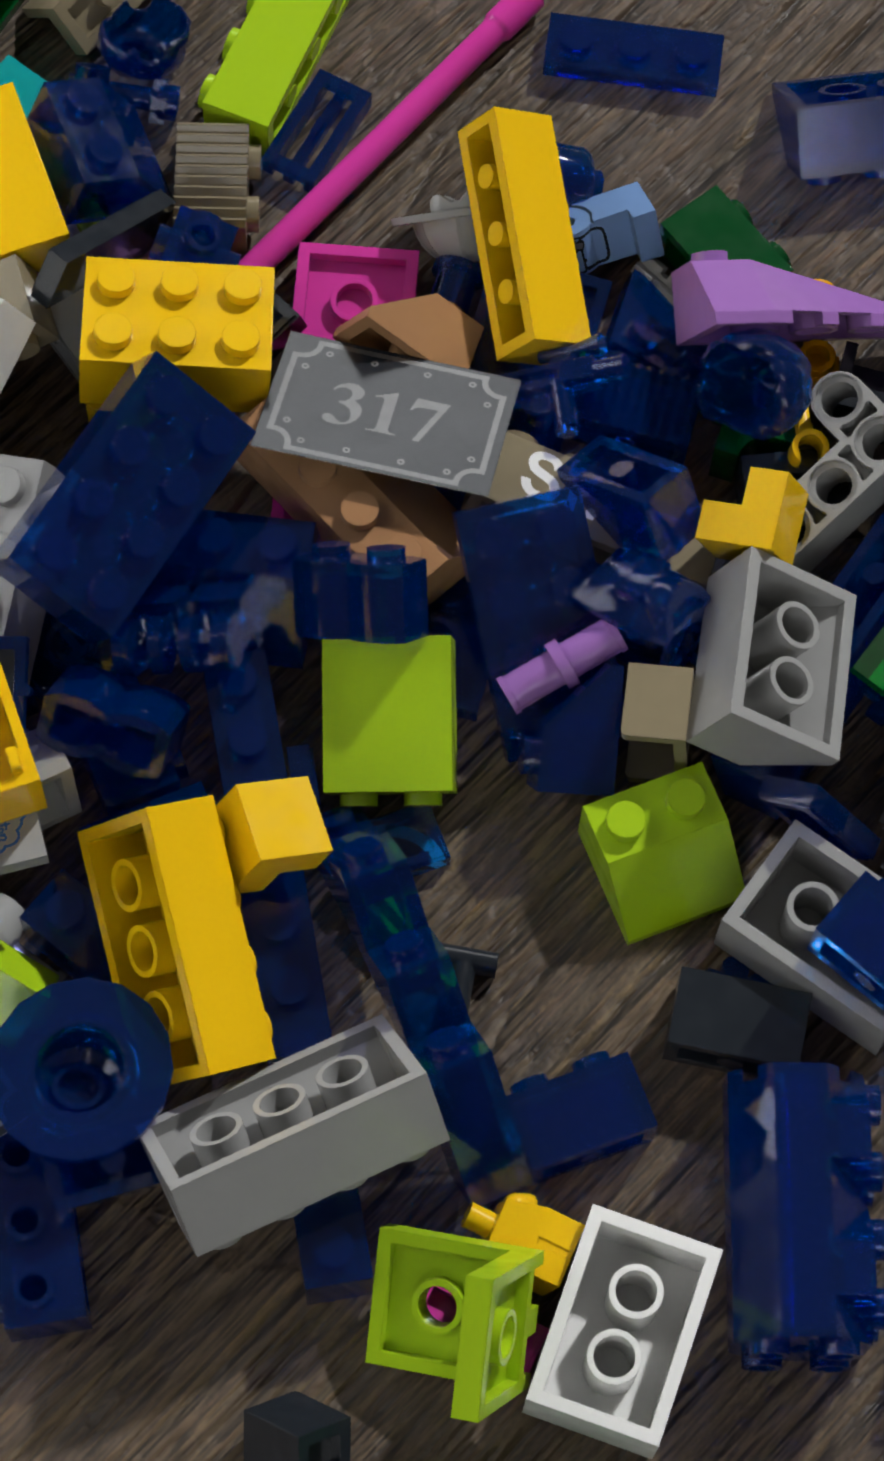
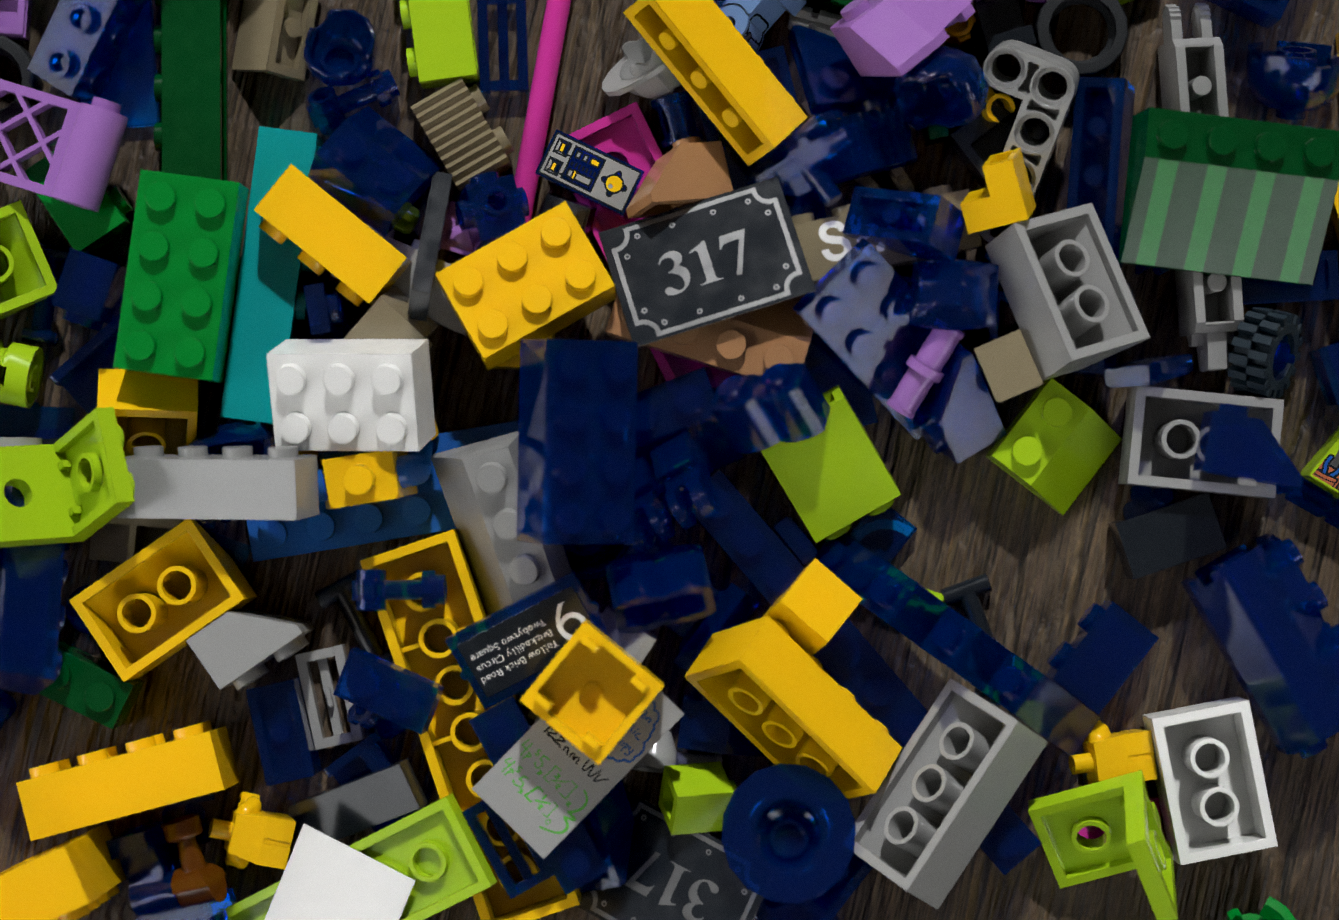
camera: 25 degrees left, 20 degrees up
(318, 280) = (589, 172): none -> tile

